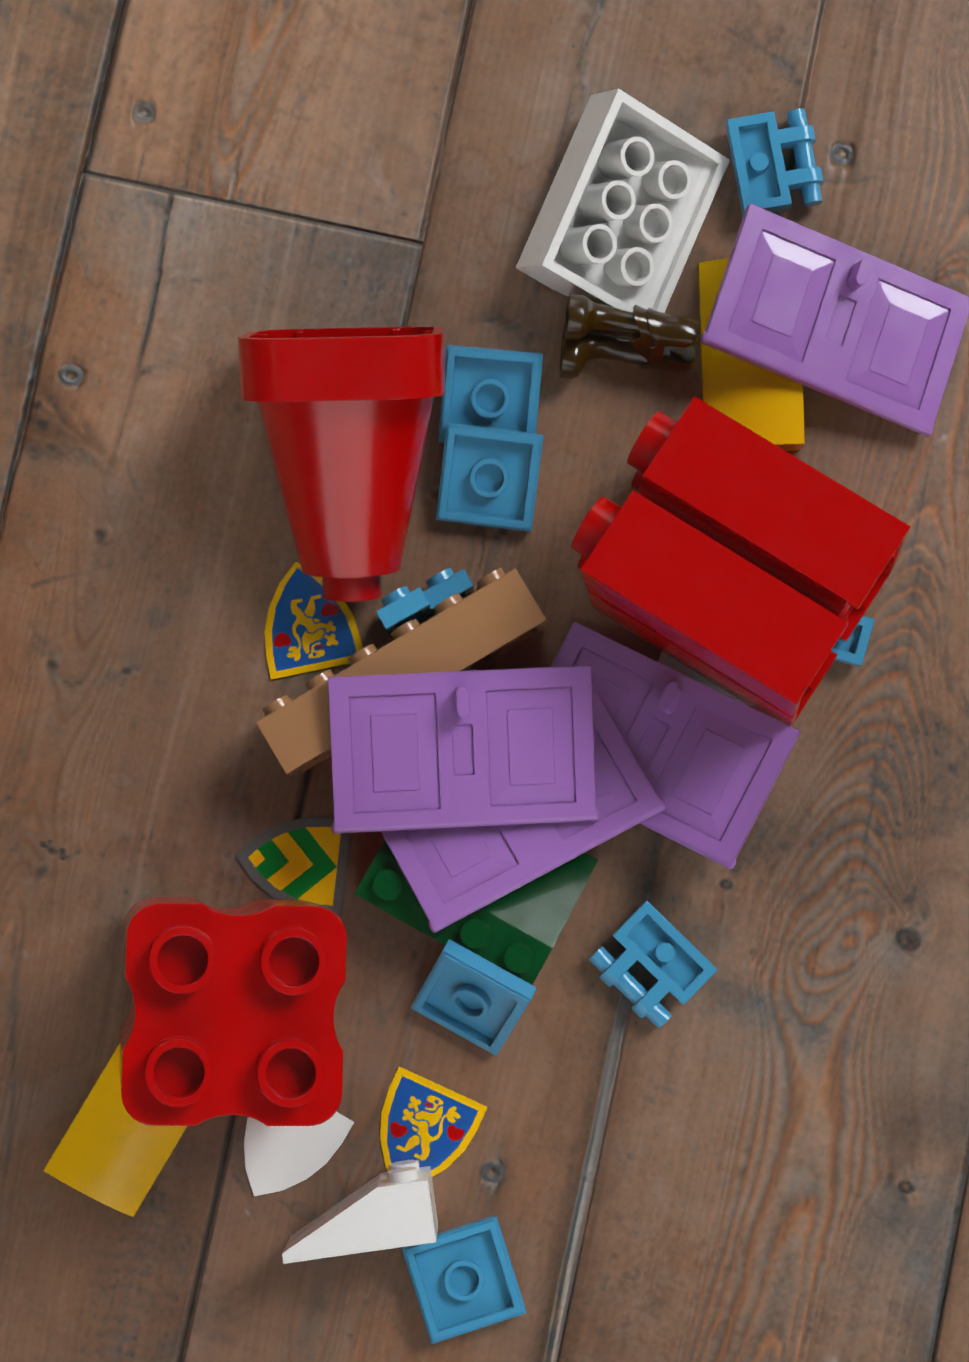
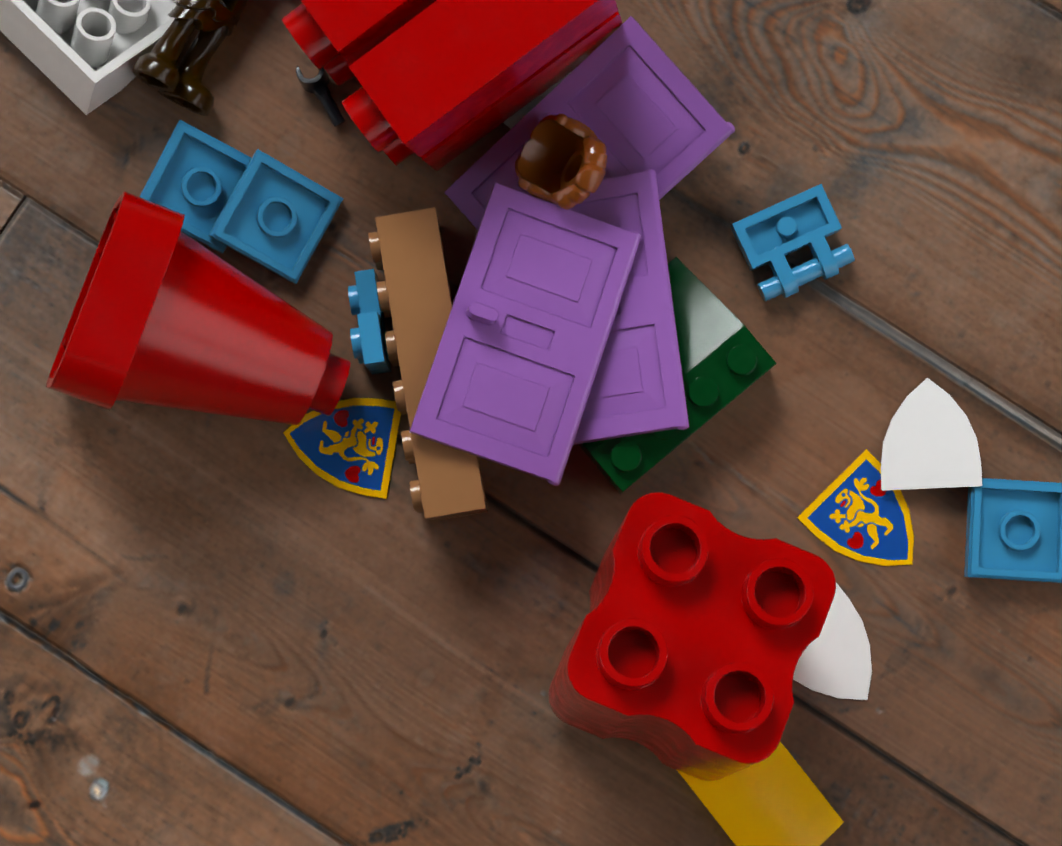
camera: 65 degrees left, 0 degrees up
(300, 862) = (568, 536): sticker -> none
(381, 1215) = (930, 585): white slope -> none
(473, 997) = (761, 418): dark azure plate -> none
(513, 1165) = (930, 444): none -> white sticker
(622, 474) = (319, 86): none -> black hand
(633, 719) = (561, 161): none -> dark orange hair

